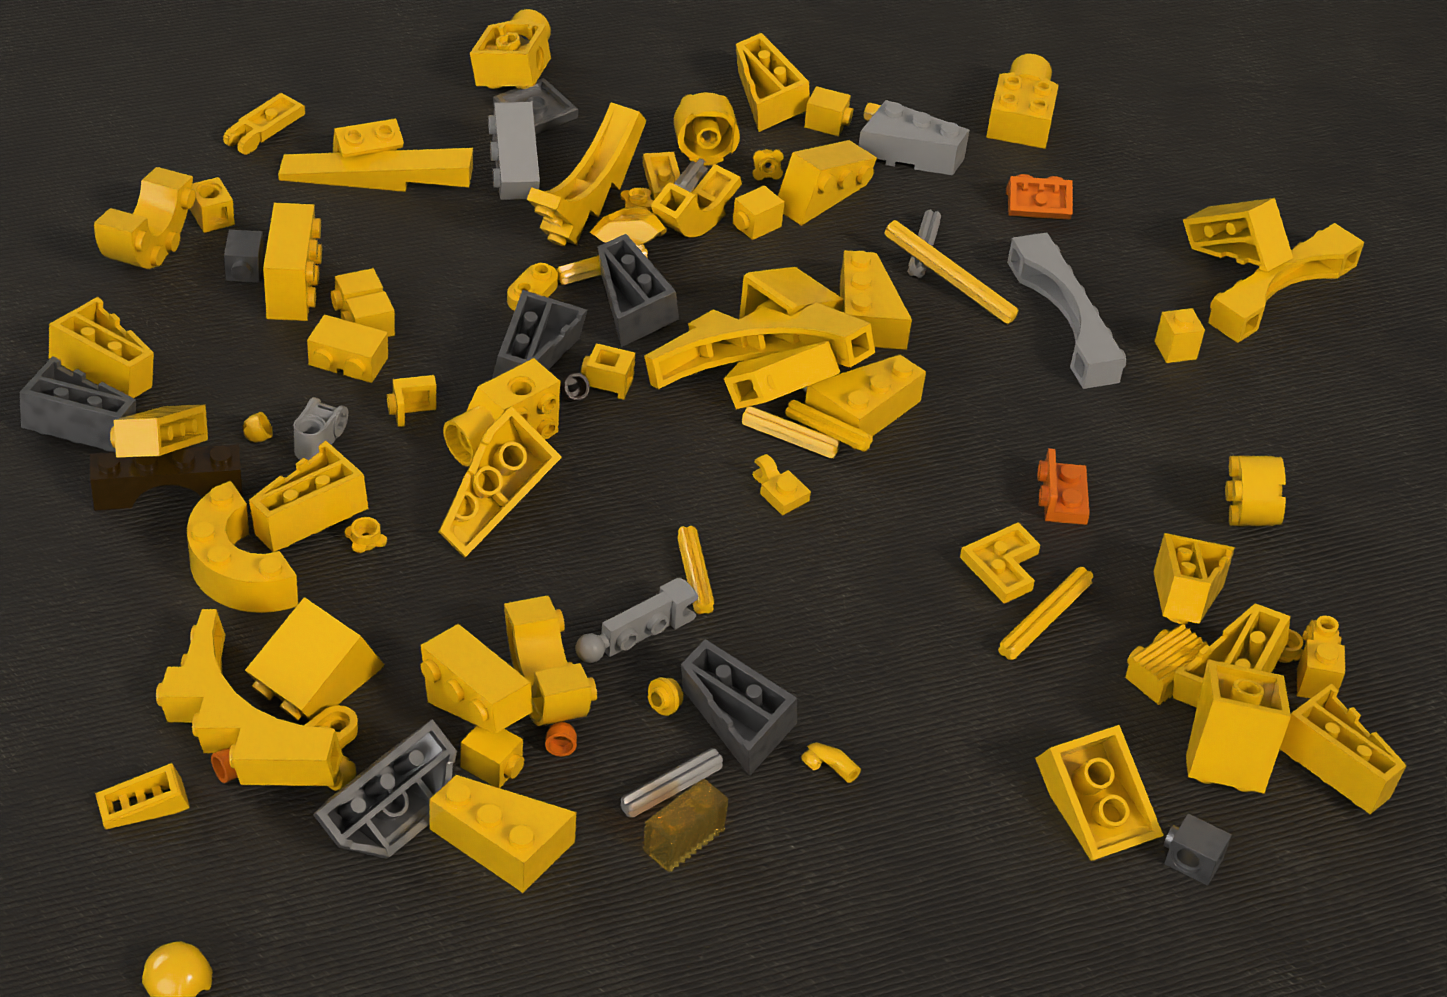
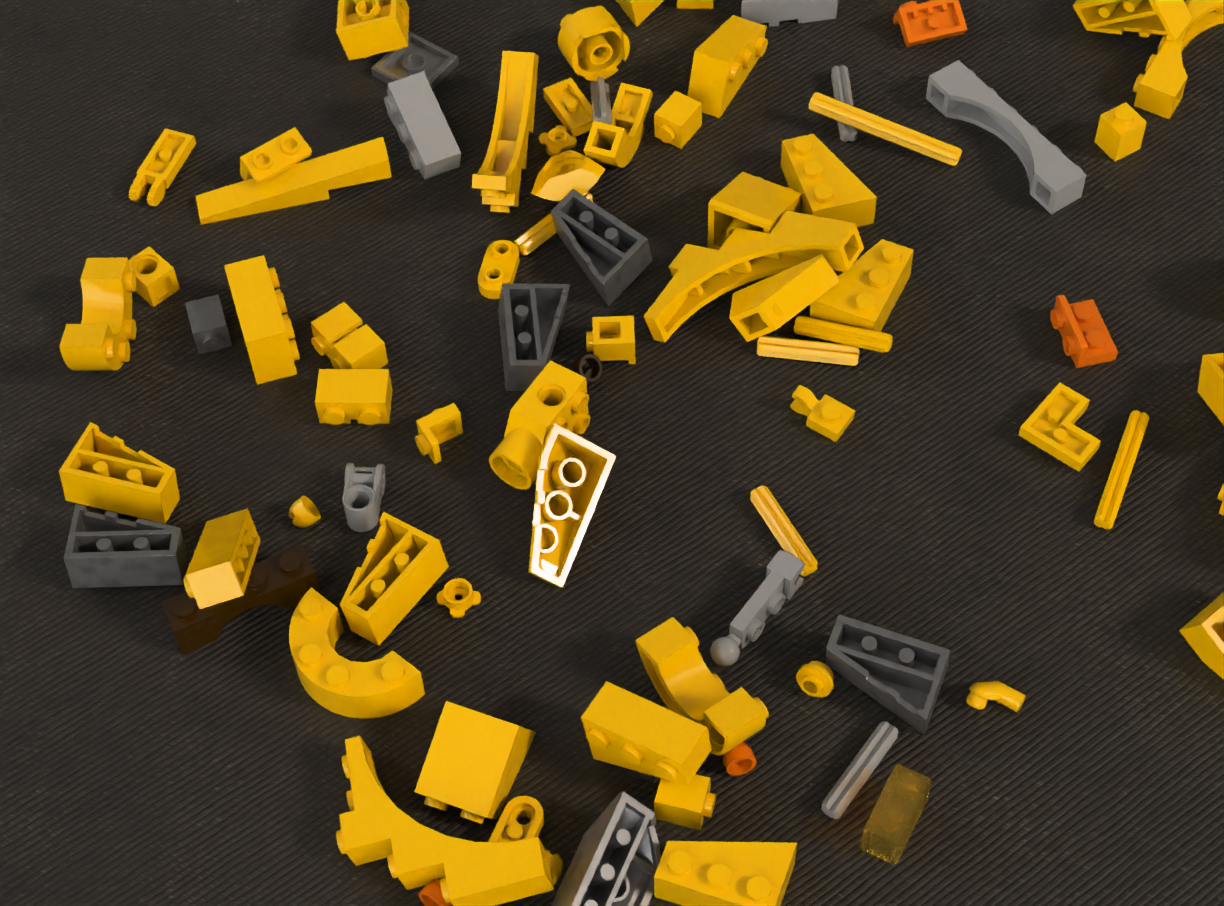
camera: 10 degrees left, 10 degrees up
(765, 156) = (661, 56): yellow plate -> none

